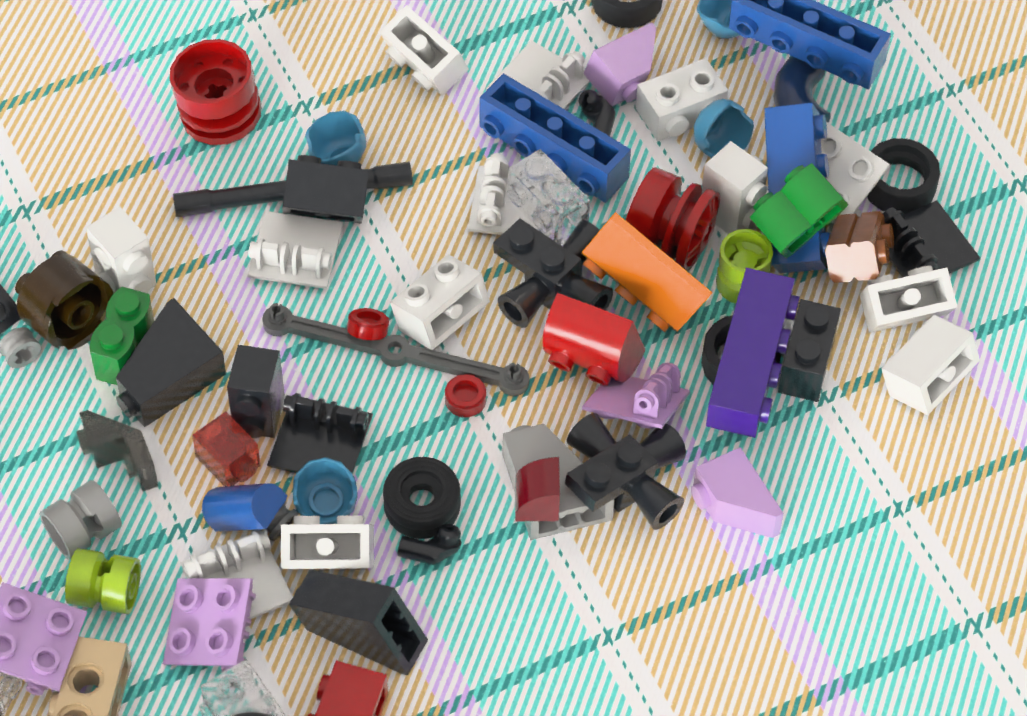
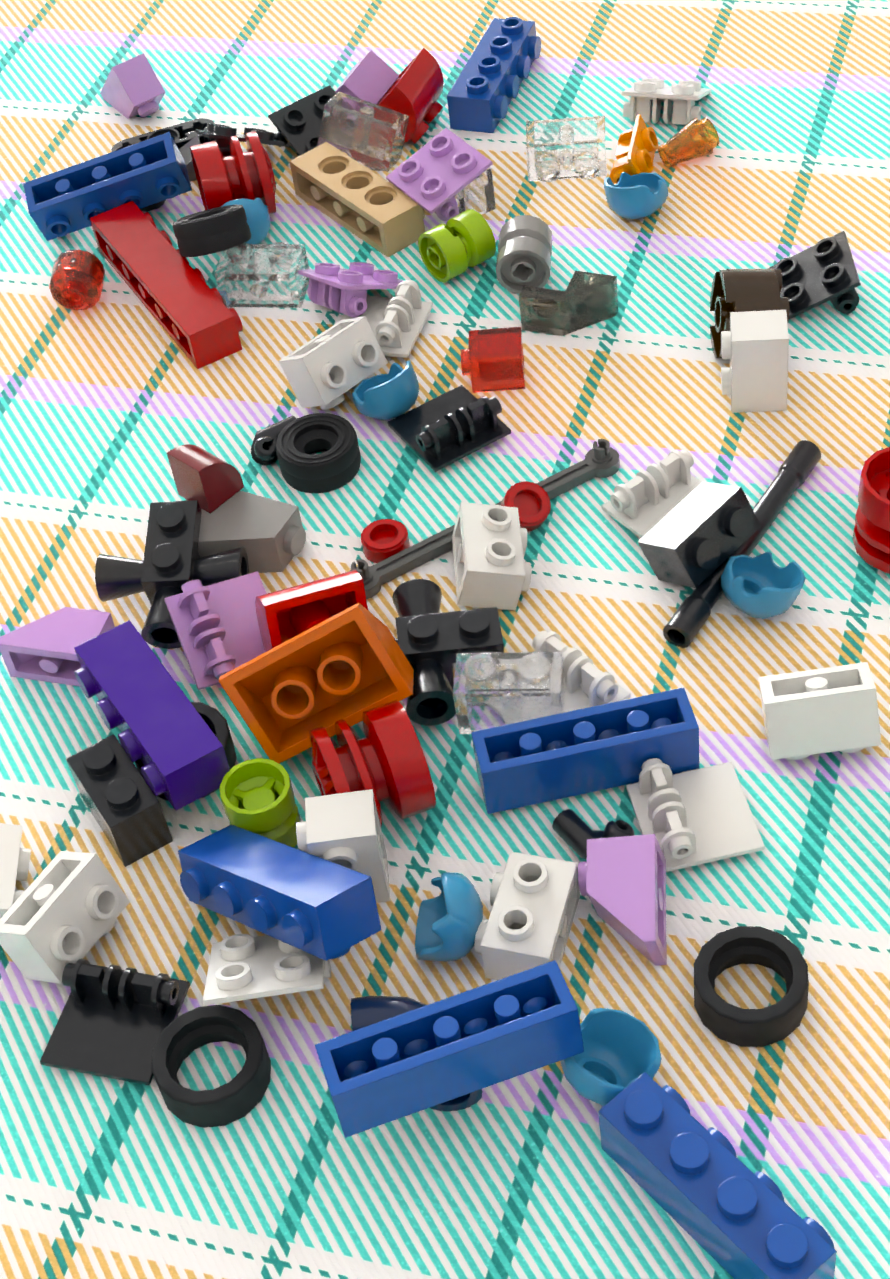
camera: 140 degrees right, 10 degrees down
(116, 338) = (679, 345): green brick -> none
(168, 366) = (624, 365): black slope -> none
(242, 506) = (424, 330): blue brick -> none
(256, 390) = (520, 377): black brick -> none
(283, 517) = (398, 354): dark grey bush -> none
(360, 618) = (245, 354): black slope -> none
(798, 209) = (226, 832): green brick -> none
(858, 246) = (157, 906): dark orange brick -> none

